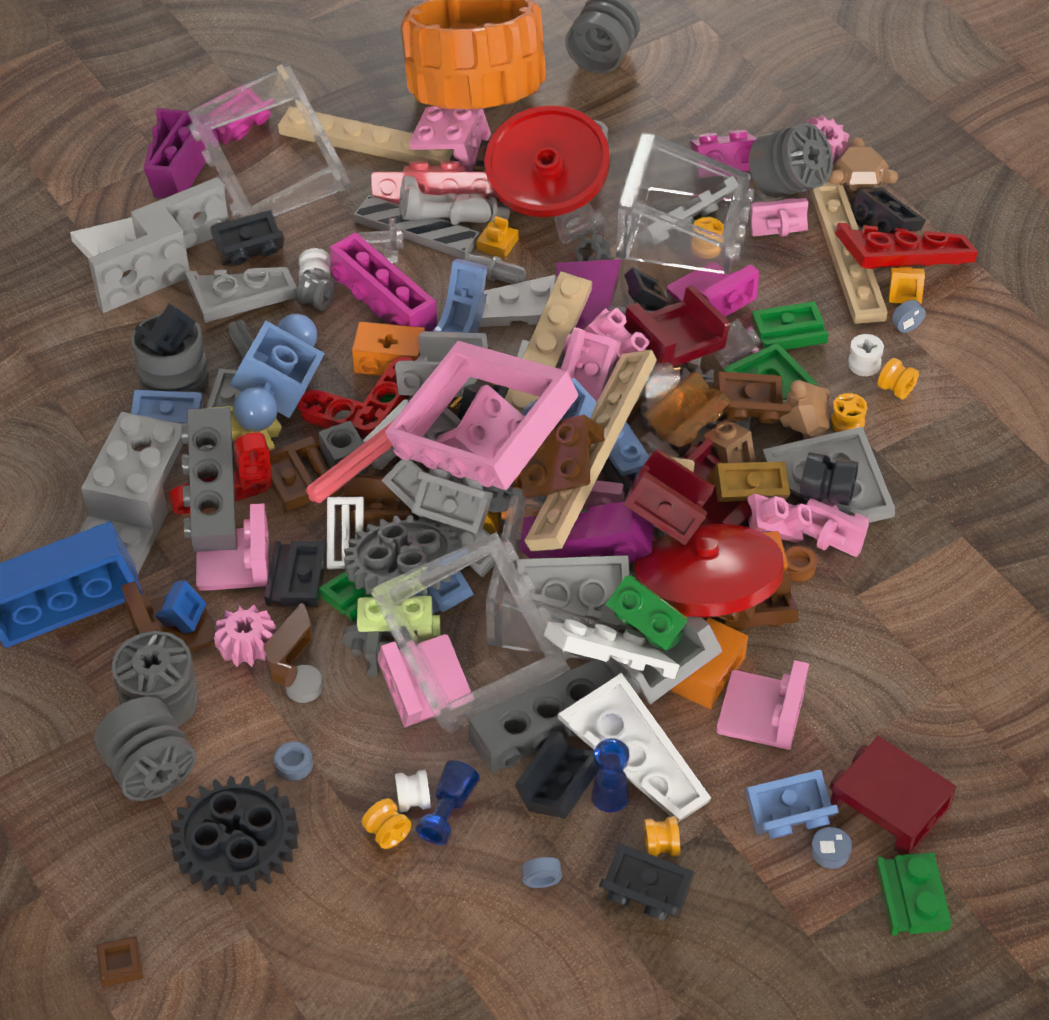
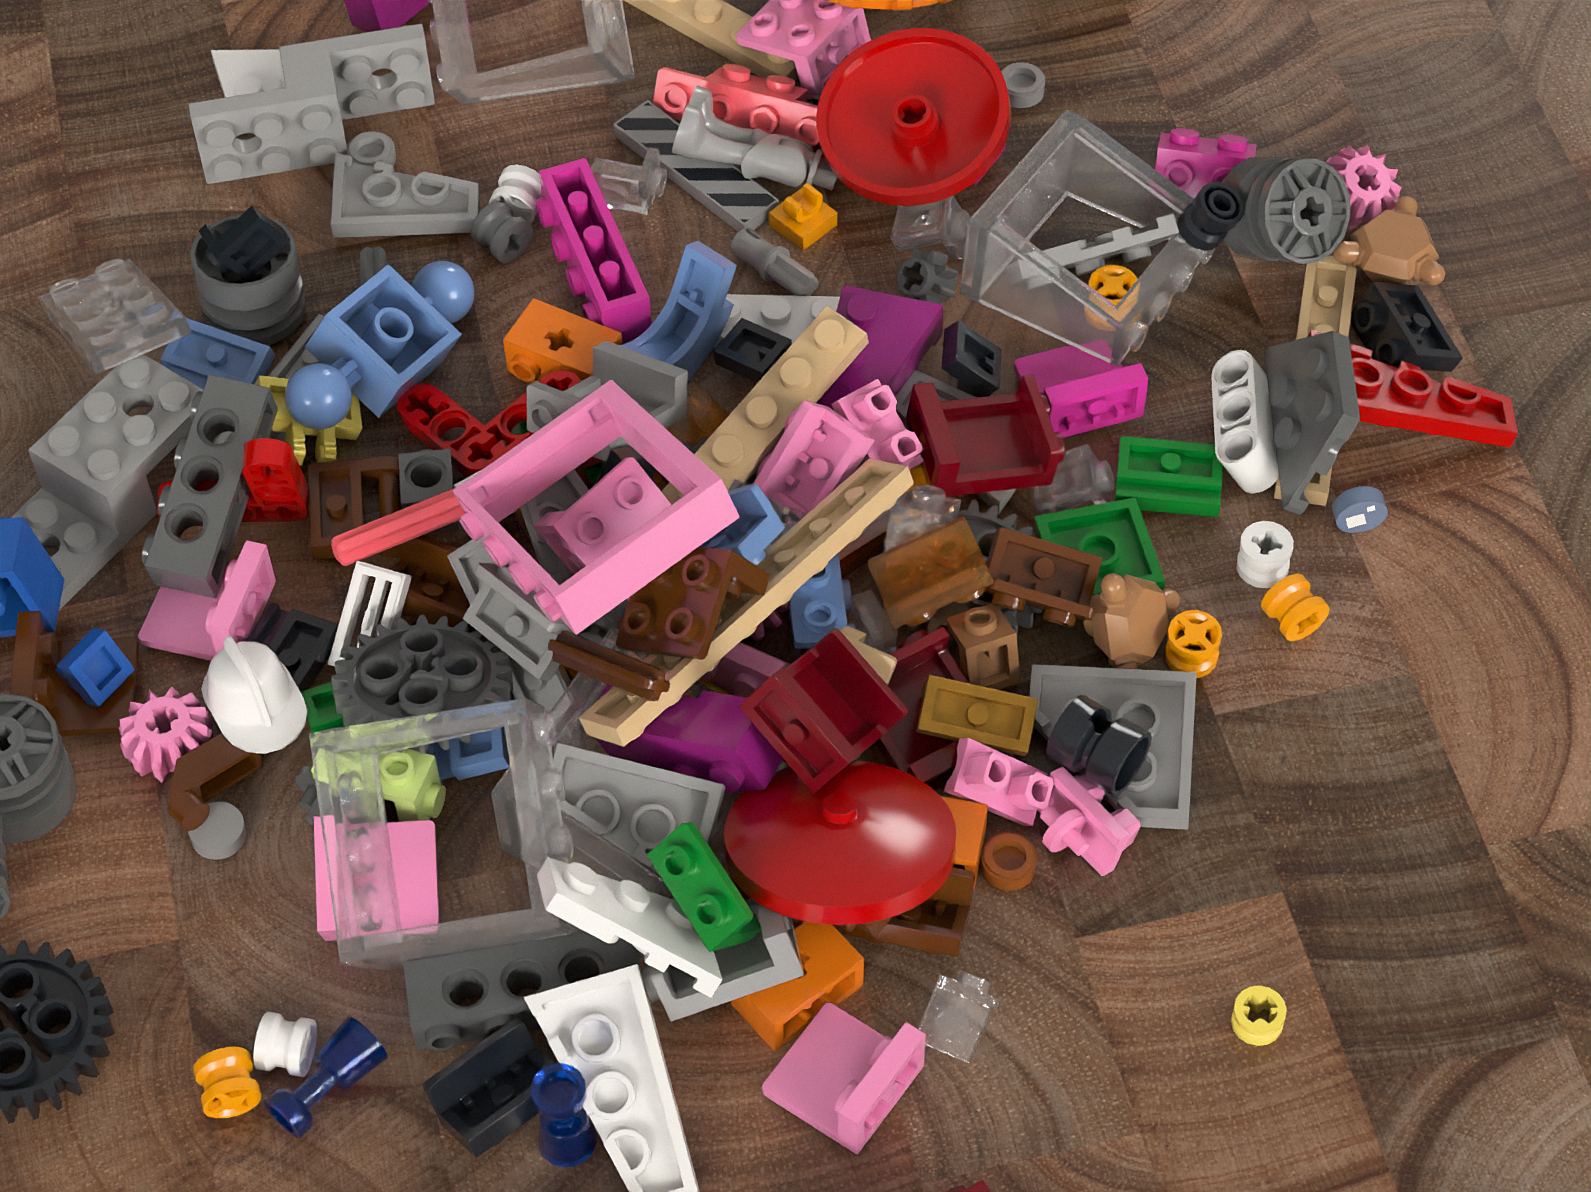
camera: 20 degrees right, 5 degrees up
(91, 398) = (113, 314): none -> clear plate
(205, 264) = (372, 147): none -> light grey tile
(247, 238) = (445, 123): black bracket -> none
(293, 761) = (151, 943): sand blue tile -> none
(294, 596) = (253, 697): none -> white piece
(511, 320) = (750, 350): none -> black bracket
(529, 505) = (609, 665): none -> reddish brown axle
(754, 170) = (1210, 216): none -> black wheel
(779, 217) = (1235, 293): bright pink hips -> none
(817, 649) = (958, 1015): none -> clear bracket
(822, 284) = (1244, 421): none -> white beam
(861, 262) = (1310, 409): none -> dark grey wing
(906, 284) = (1379, 457): light orange tile -> none
(976, 599) = (1260, 1031): none -> light yellow bush

